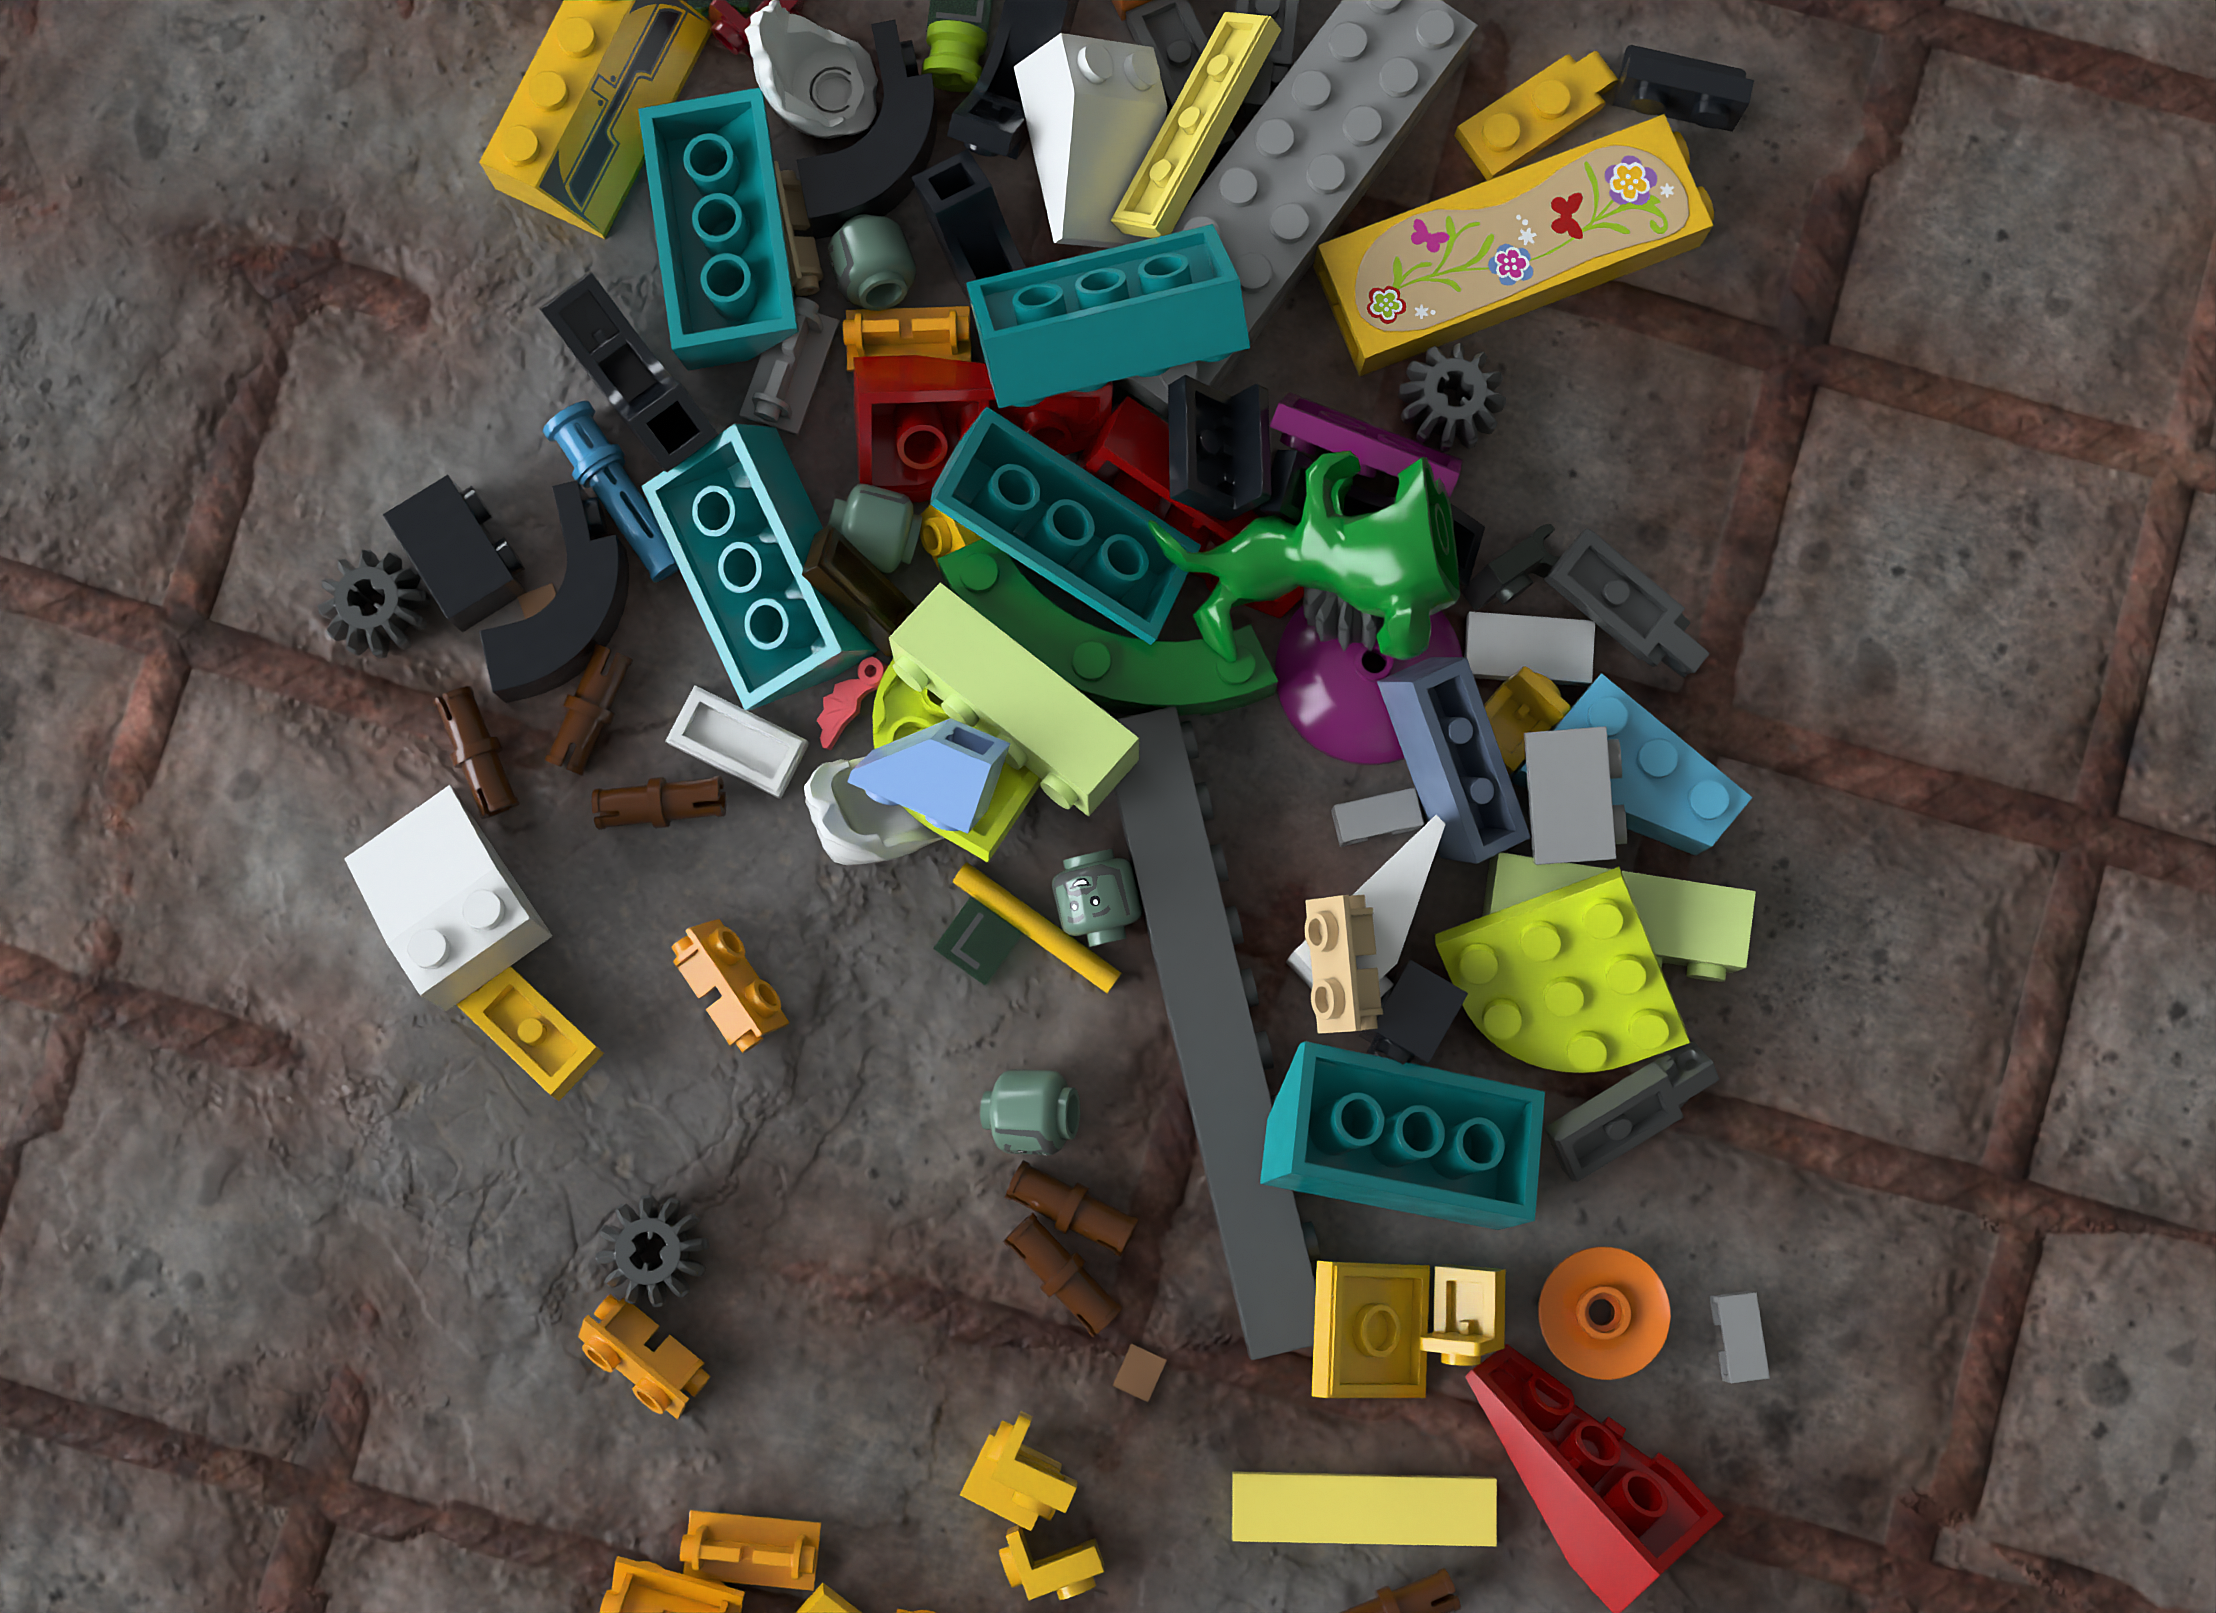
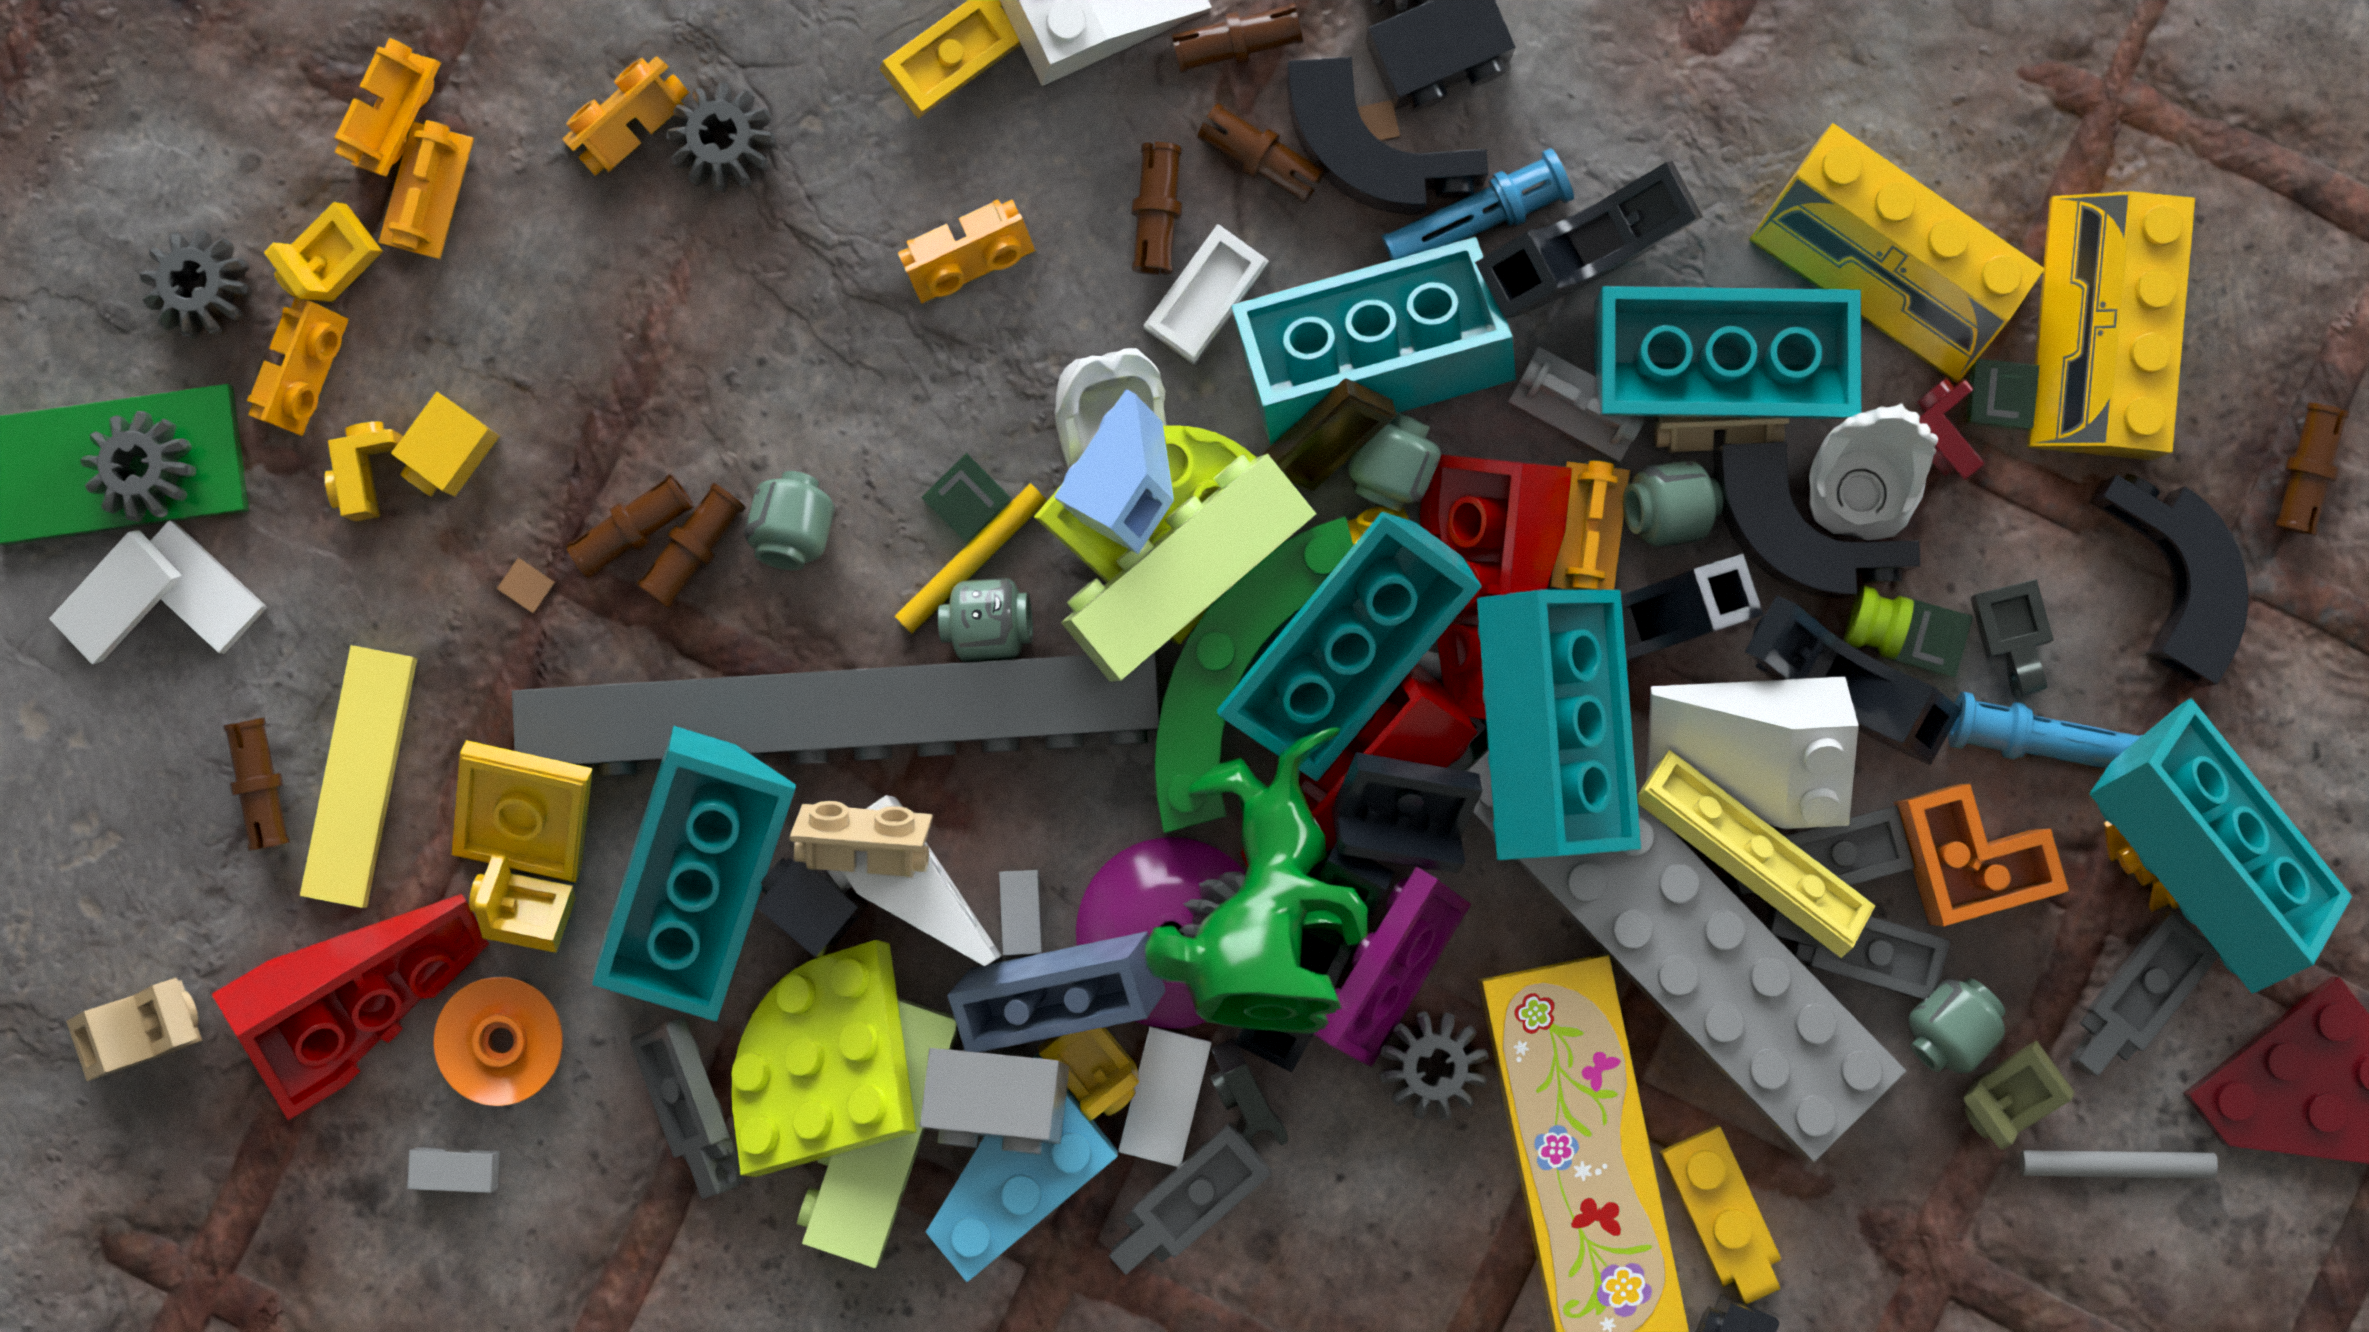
camera: 100 degrees right, 5 degrees up
(846, 699) = (1228, 407): coral piece -> none
(1034, 1484) = (430, 461): yellow bracket -> none

